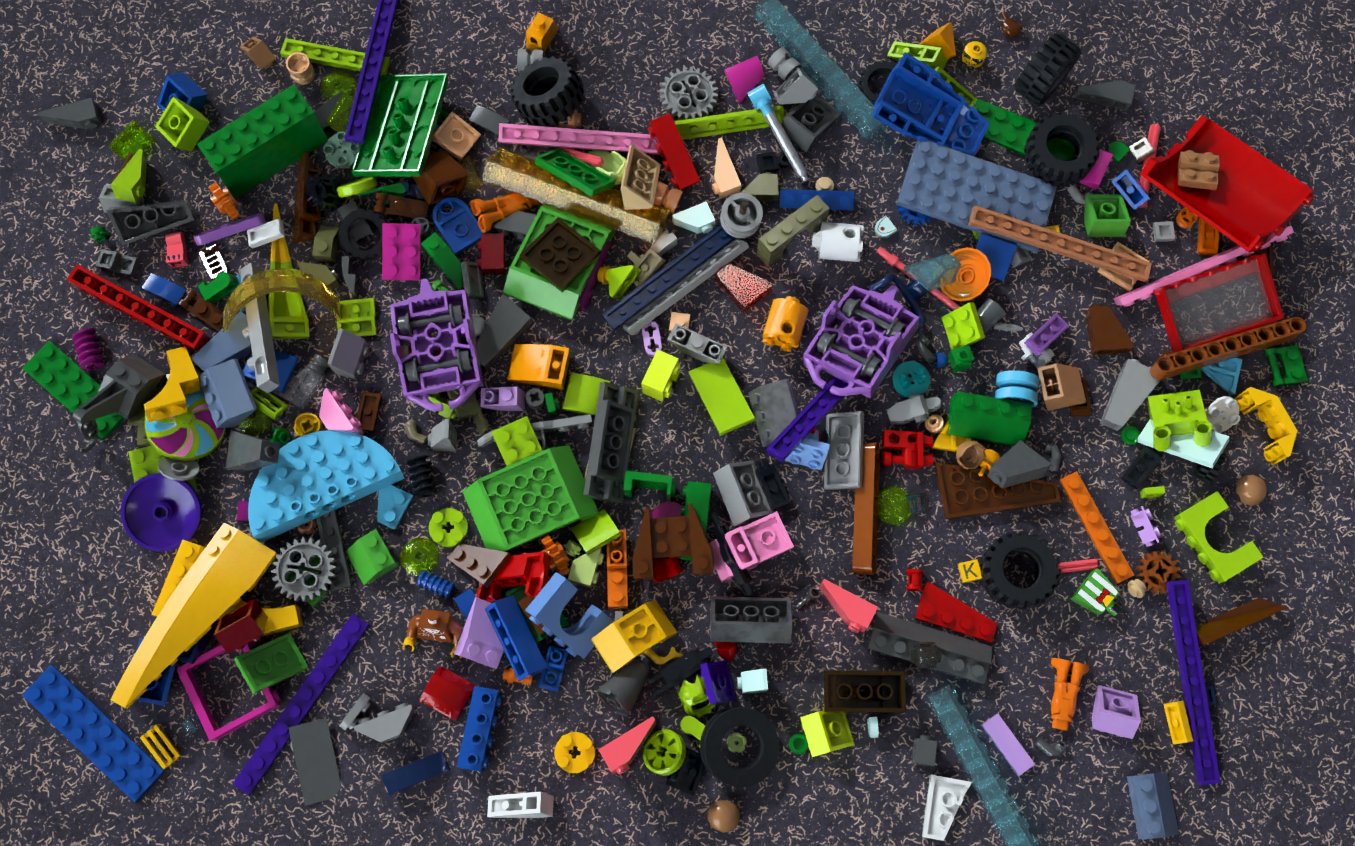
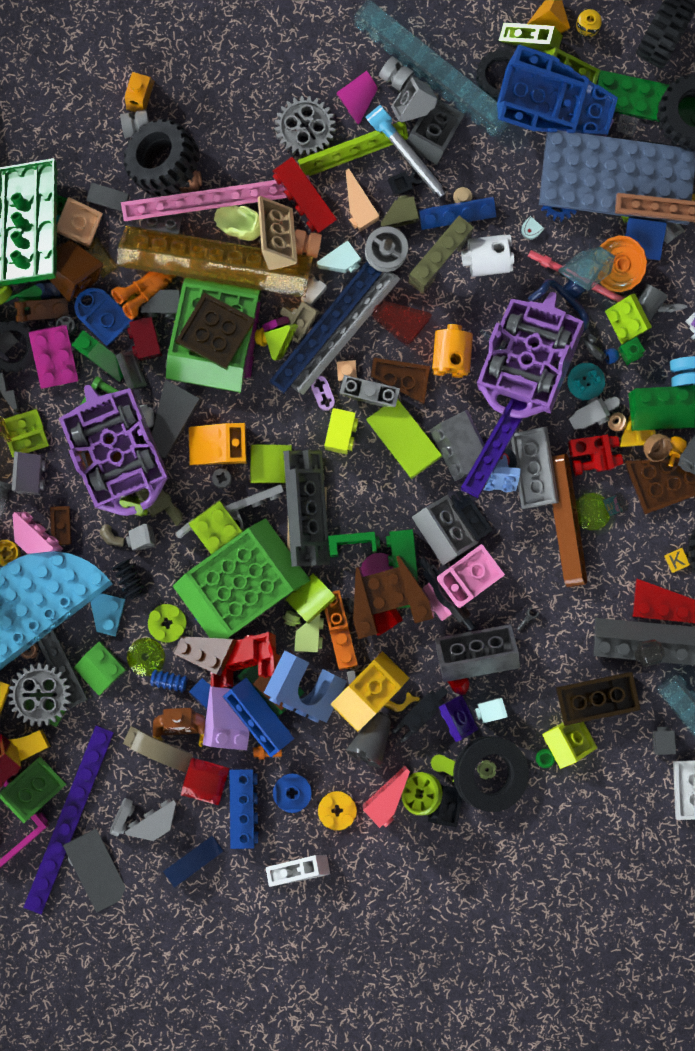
camera: 10 degrees left, 10 degrees up
(408, 650) = (157, 749): none -> dark tan arch
(503, 398) = (190, 486): lavender slope -> none
(523, 730) = (285, 801): none -> blue plate
(552, 404) = (239, 480): green plate -> none
(553, 674) = (300, 731): blue slope -> none
(557, 554) = (277, 627): orange gear -> none
(575, 172) = (209, 238): green plate -> none
(592, 160) = (210, 218): coral axle -> none
(620, 262) = (276, 323): none -> magenta tile
(693, 694) = (437, 734): lime helmet -> none
(723, 816) = (488, 839): medium nougat hair -> none
(739, 340) = (409, 377): none -> reddish brown wing
(851, 608) = (572, 623): coral slope -> none
(873, 727) = (611, 728): light aqua tile -> none
(914, 580) = (626, 580): red bush -> none

